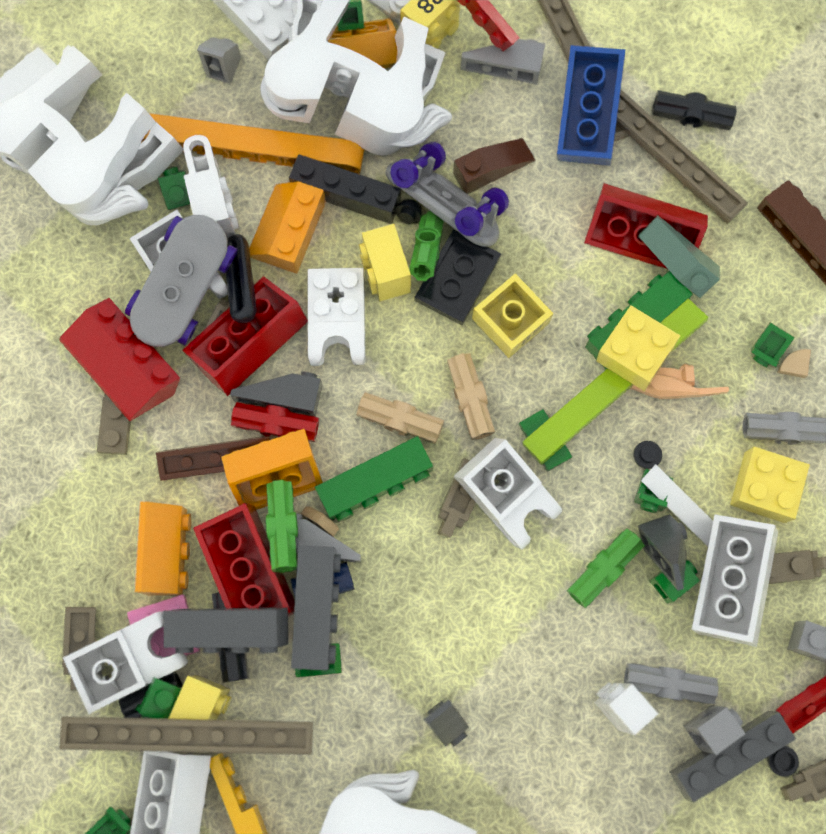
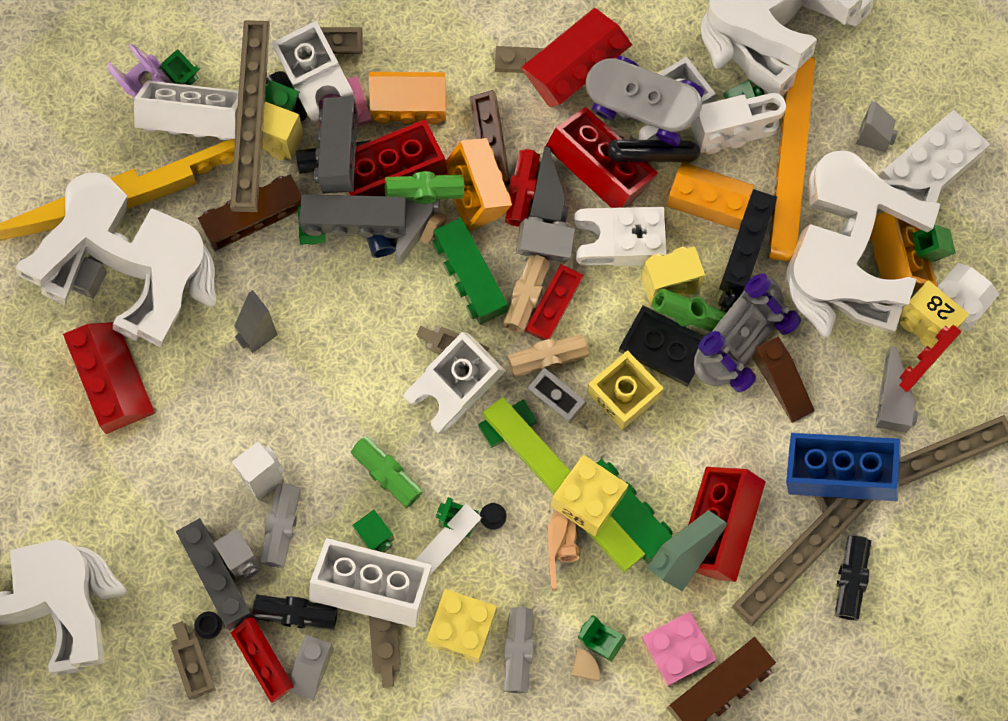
camera: 90 degrees right, 5 degrees down
(287, 703) = (275, 203): none -> reddish brown brick
(341, 396) = (545, 239): none -> light grey brick
(410, 389) = (554, 303): none -> red plate
(519, 385) = (557, 395): none -> light grey brick
(666, 547) = (400, 519): dark grey slope -> none
(765, 666) = (295, 612): none -> black piece
(771, 274) = (678, 648): none -> bright pink plate

